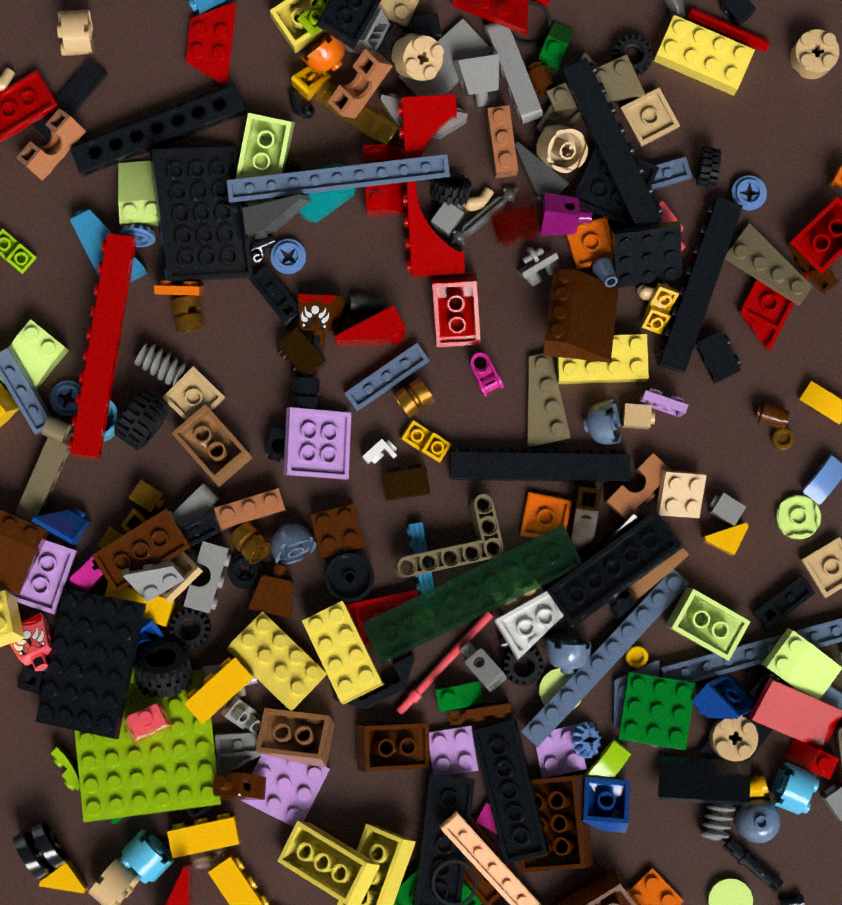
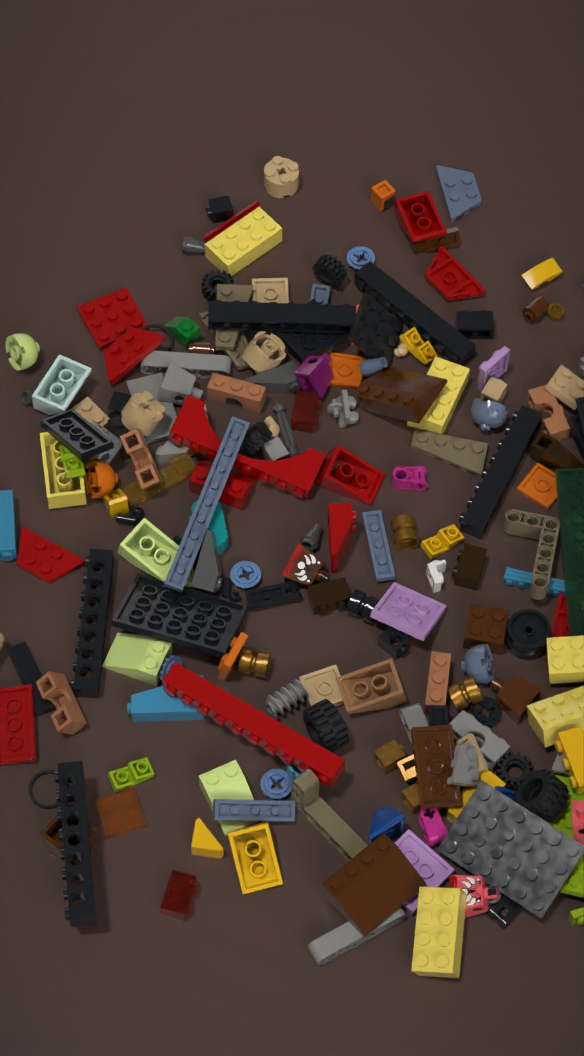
camera: 60 degrees left, 25 degrees down
(763, 262) = (421, 266): dark tan wing -> none

